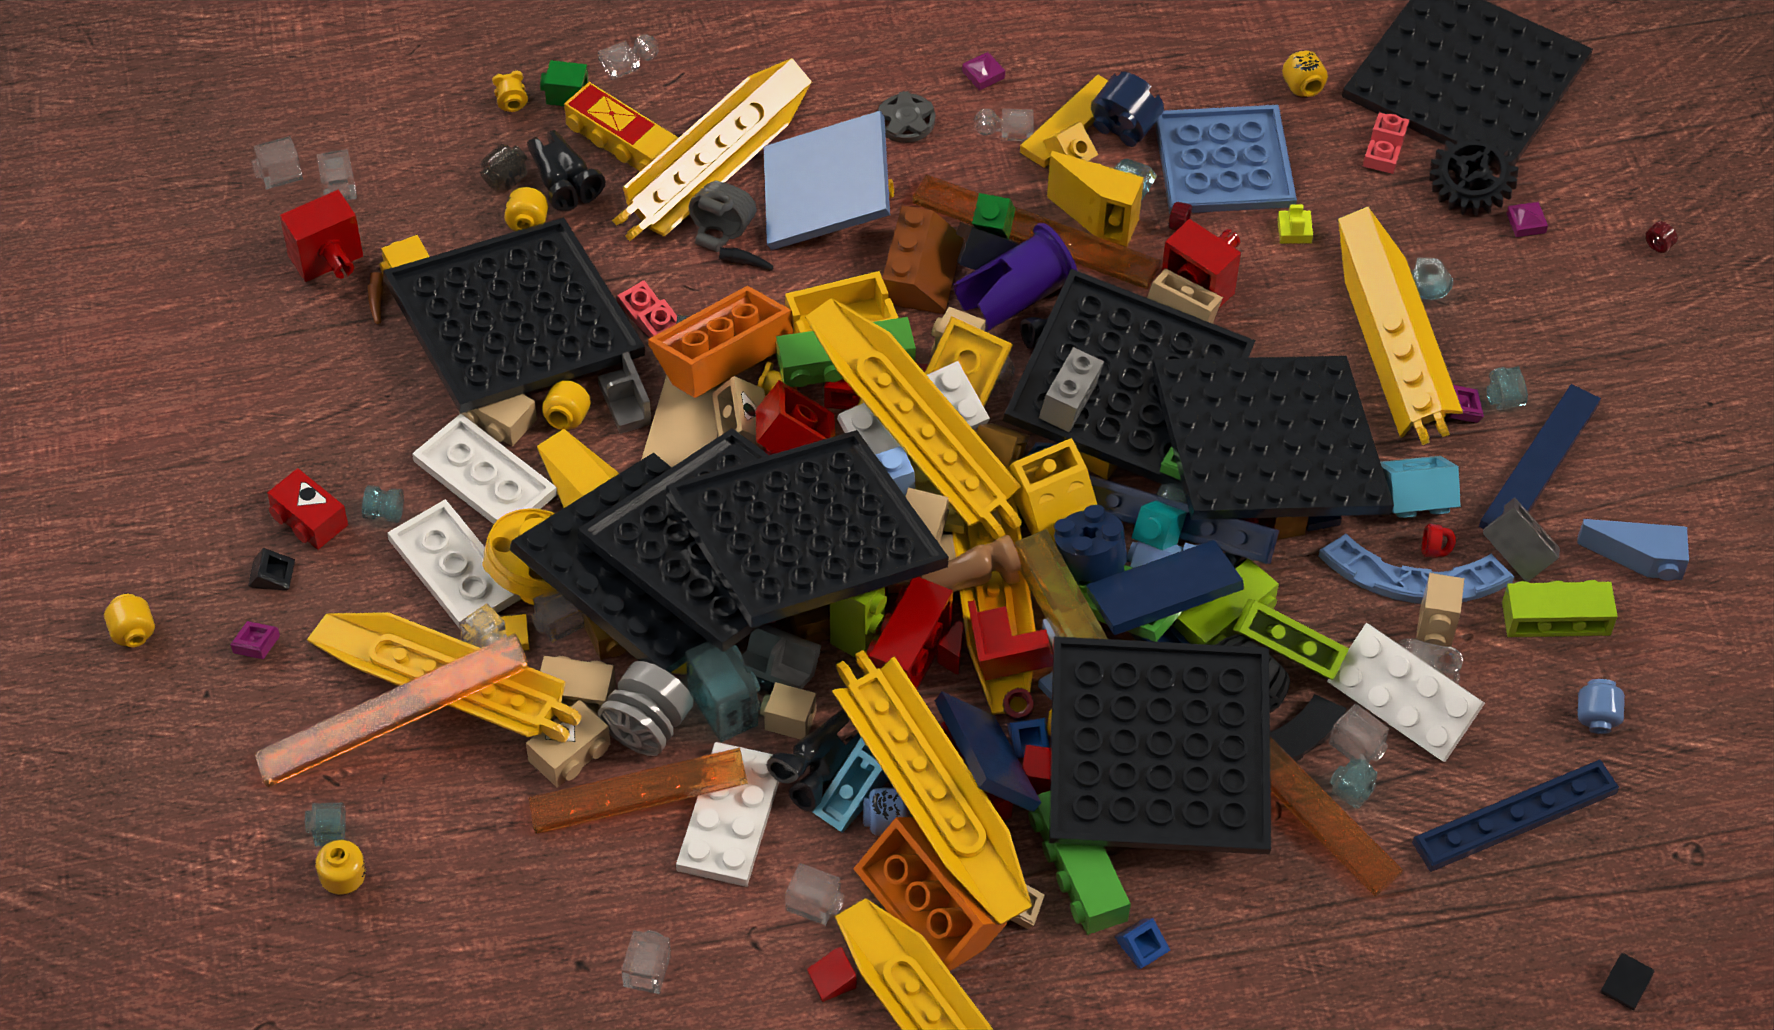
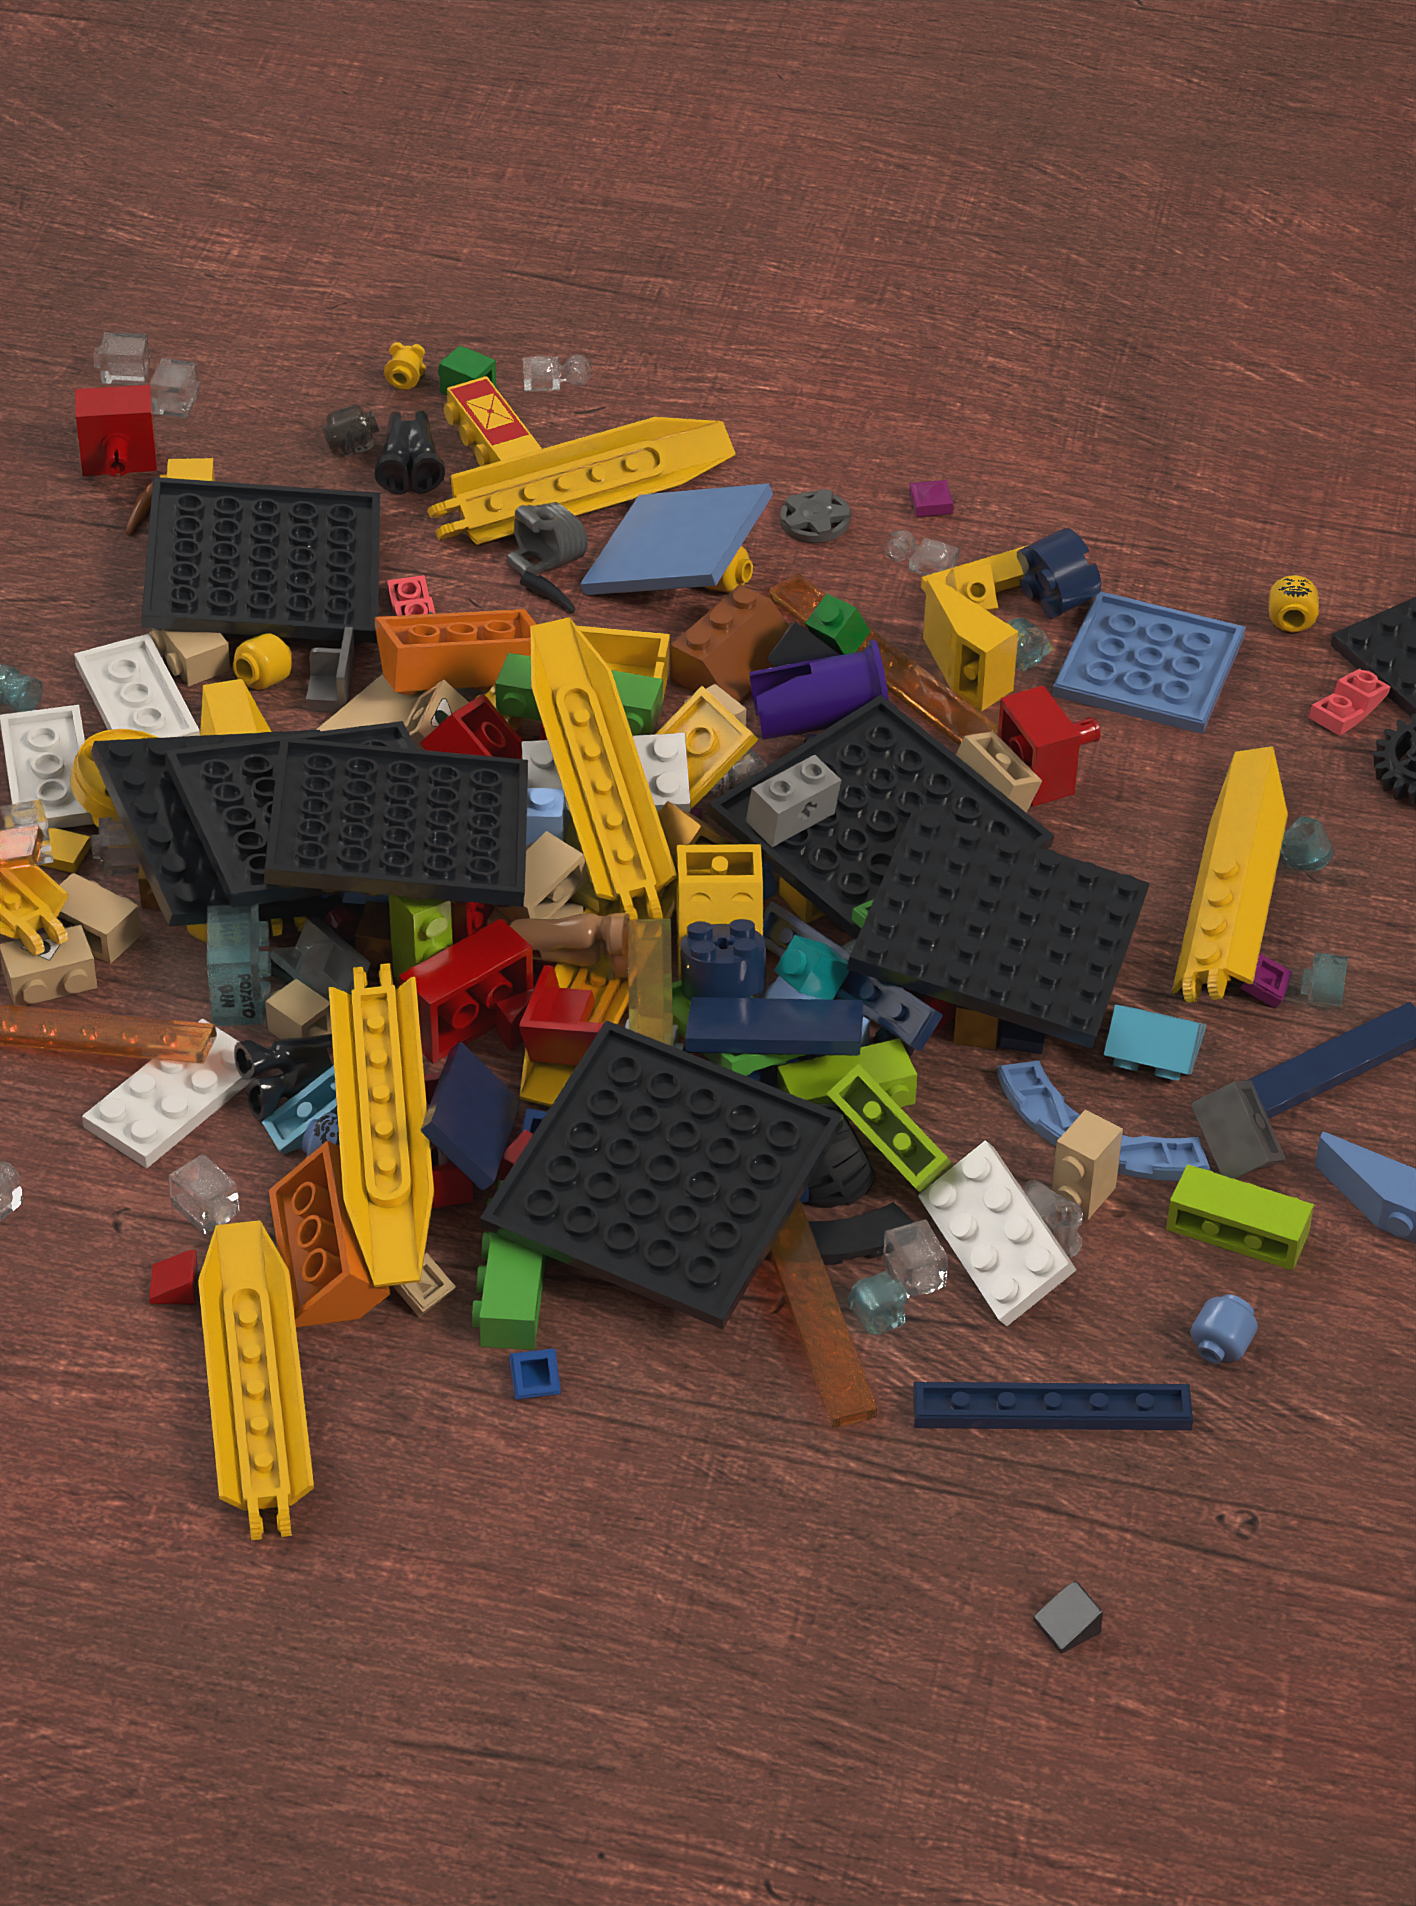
camera: 25 degrees right, 10 degrees down
(525, 207) = (346, 471): yellow head -> none
(646, 708) = (142, 954): light grey wheel -> none
(1018, 692) = (541, 1083): dark red axle -> none
(1179, 215) = (1062, 693): dark red axle -> none
(1295, 225) = (1187, 748): neon yellow tile -> none
(1432, 541) = (1134, 1100): red tile -> none

